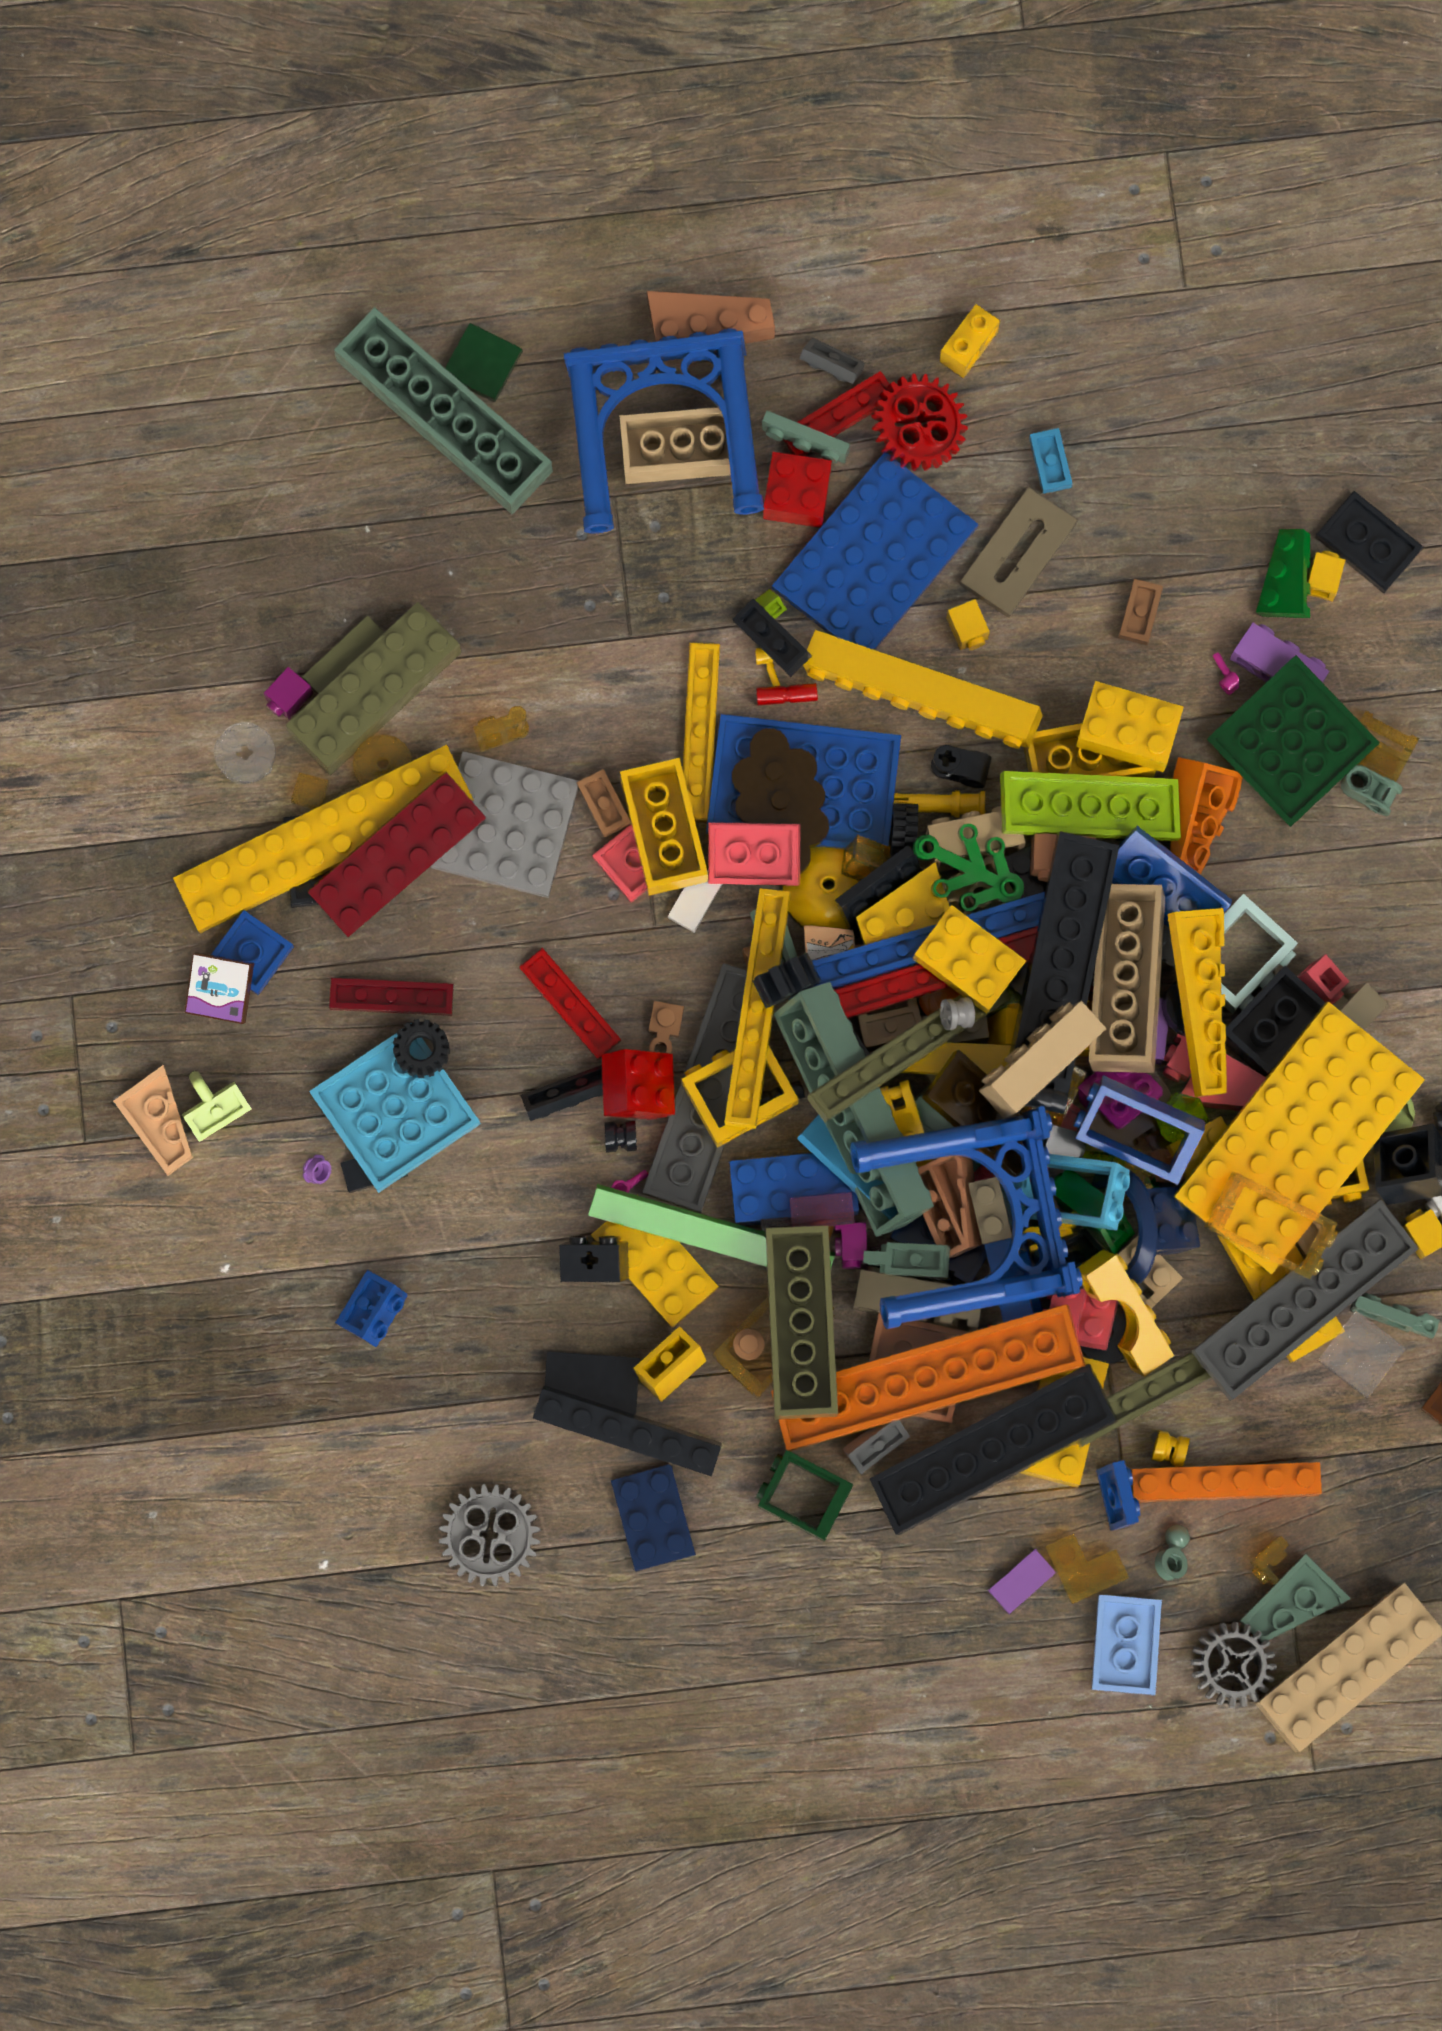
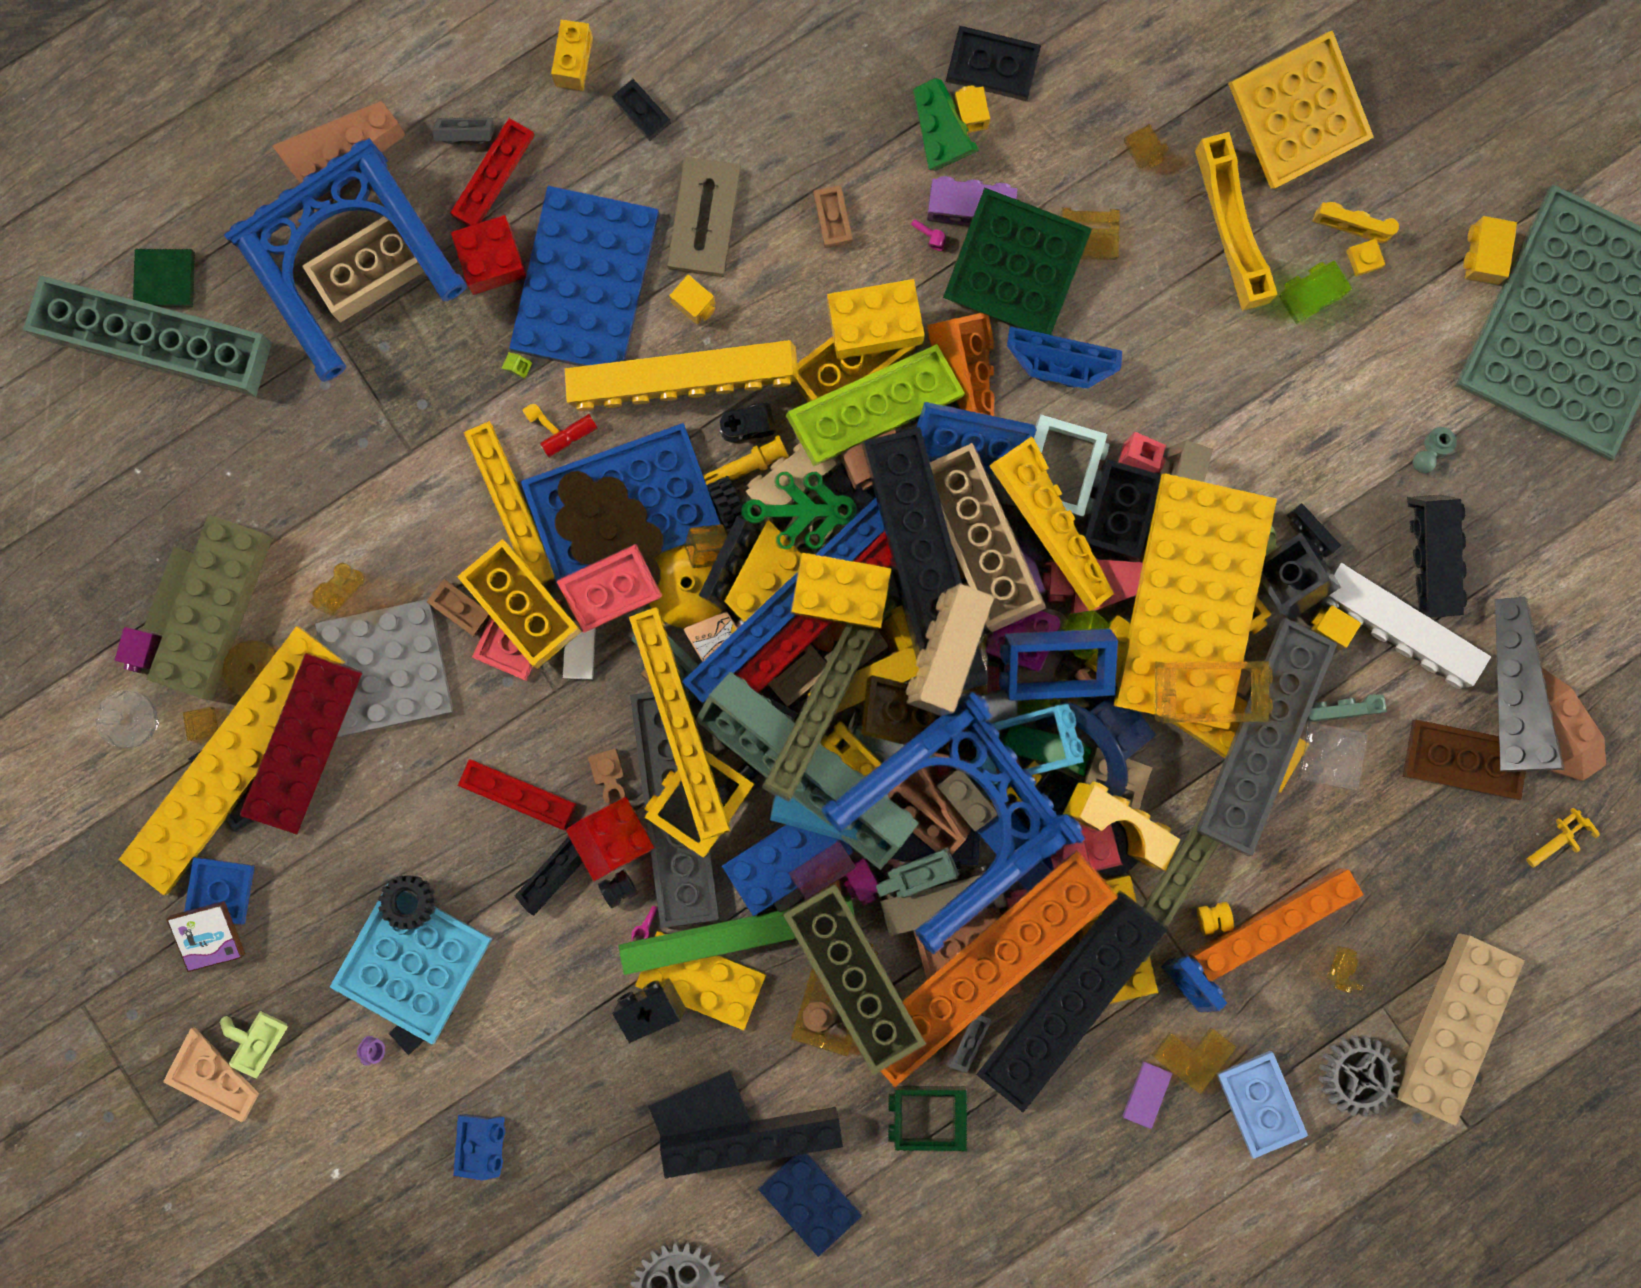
camera: 30 degrees left, 5 degrees up
(391, 996) = (360, 867): dark red plate -> none
(670, 1364) = (758, 1066): yellow brick -> none
(772, 637) = (531, 393): black plate -> none
(786, 980) = (692, 690): black gear -> none
(805, 438) = (472, 206): sand green plate -> none
(914, 396) = (580, 165): red gear -> none
(957, 1013) = (854, 643): light grey wheel -> none
(1009, 423) = (641, 109): none -> black plate
(1050, 461) = (692, 124): dark azure plate -> none
(1177, 1538) = (1264, 1014): sand green plate -> none
(1290, 851) = (1062, 359): none -> blue wedge
(1294, 1600) = (1386, 986): sand green wing -> none
(1372, 791) = (1106, 272): sand green piece -> none

